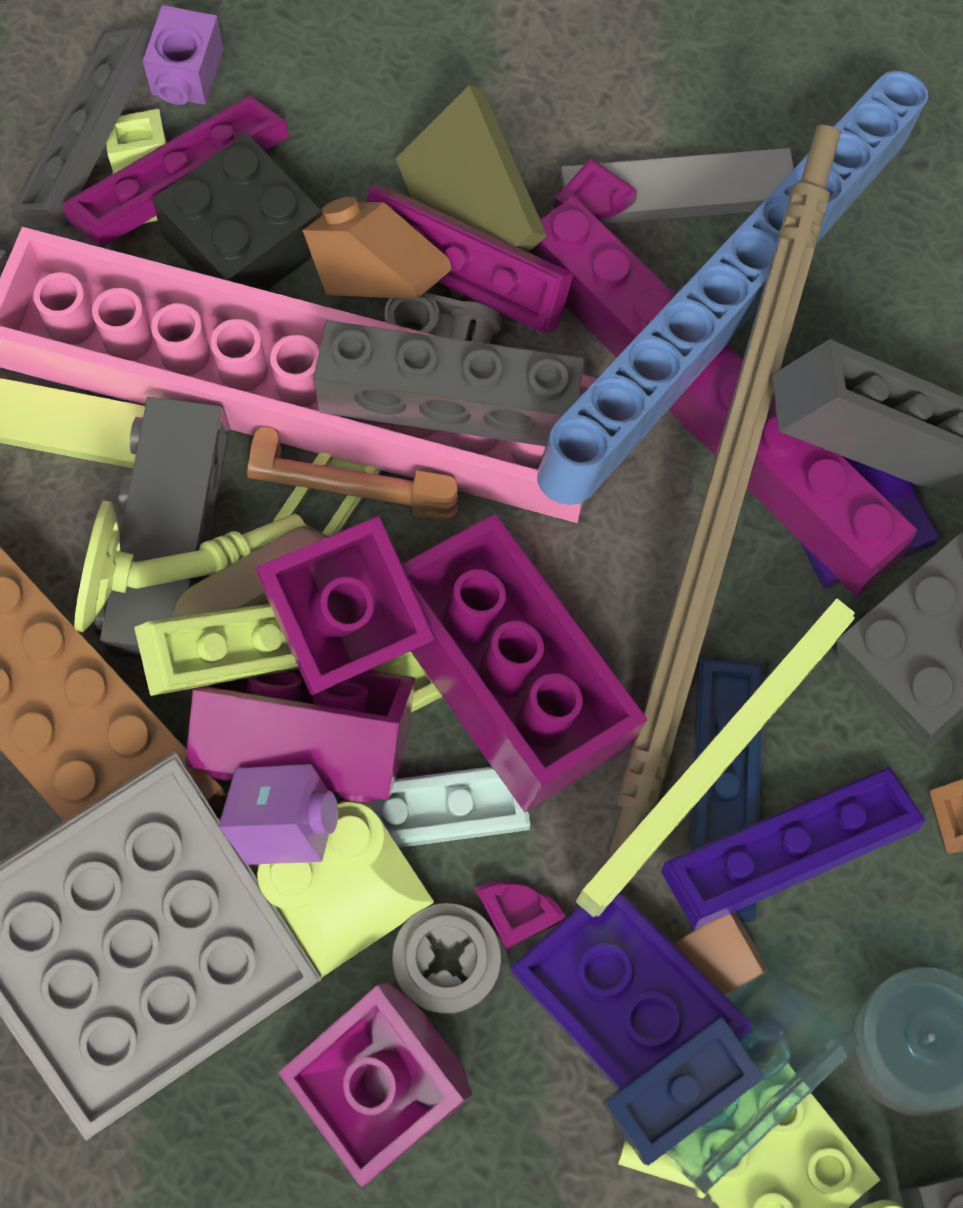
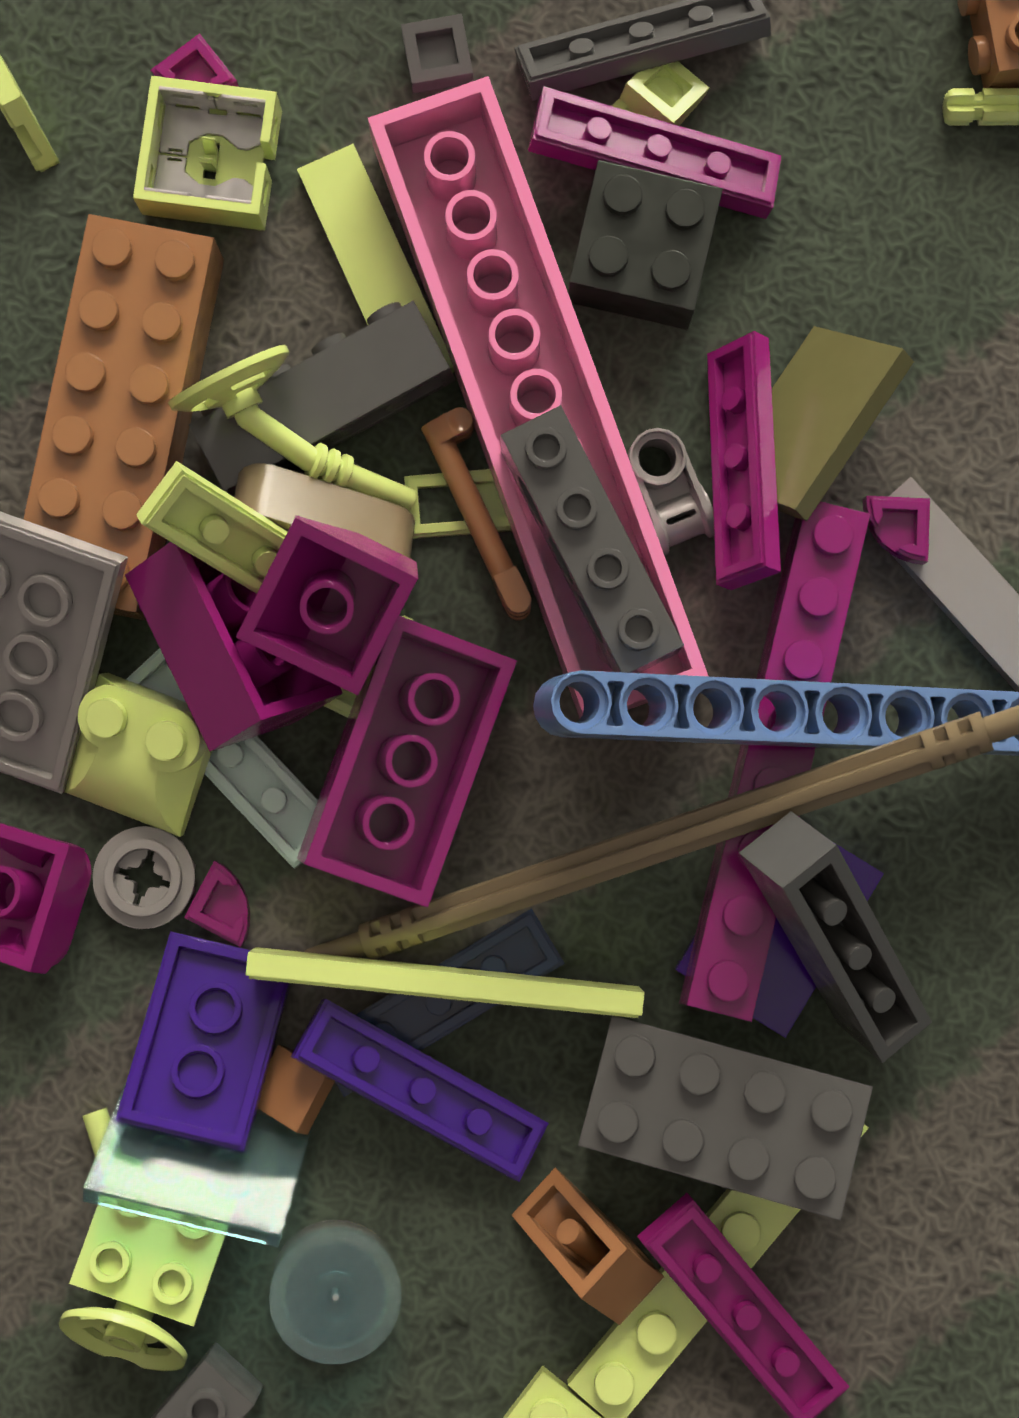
camera: 55 degrees right, 15 degrees up
(183, 55) = (783, 47): medium lavender brick -> none
(279, 814) = (136, 676): medium lavender brick -> none
(372, 252) = (689, 383): medium nougat slope -> none
(682, 1090) = (145, 1134): dark blue plate -> none

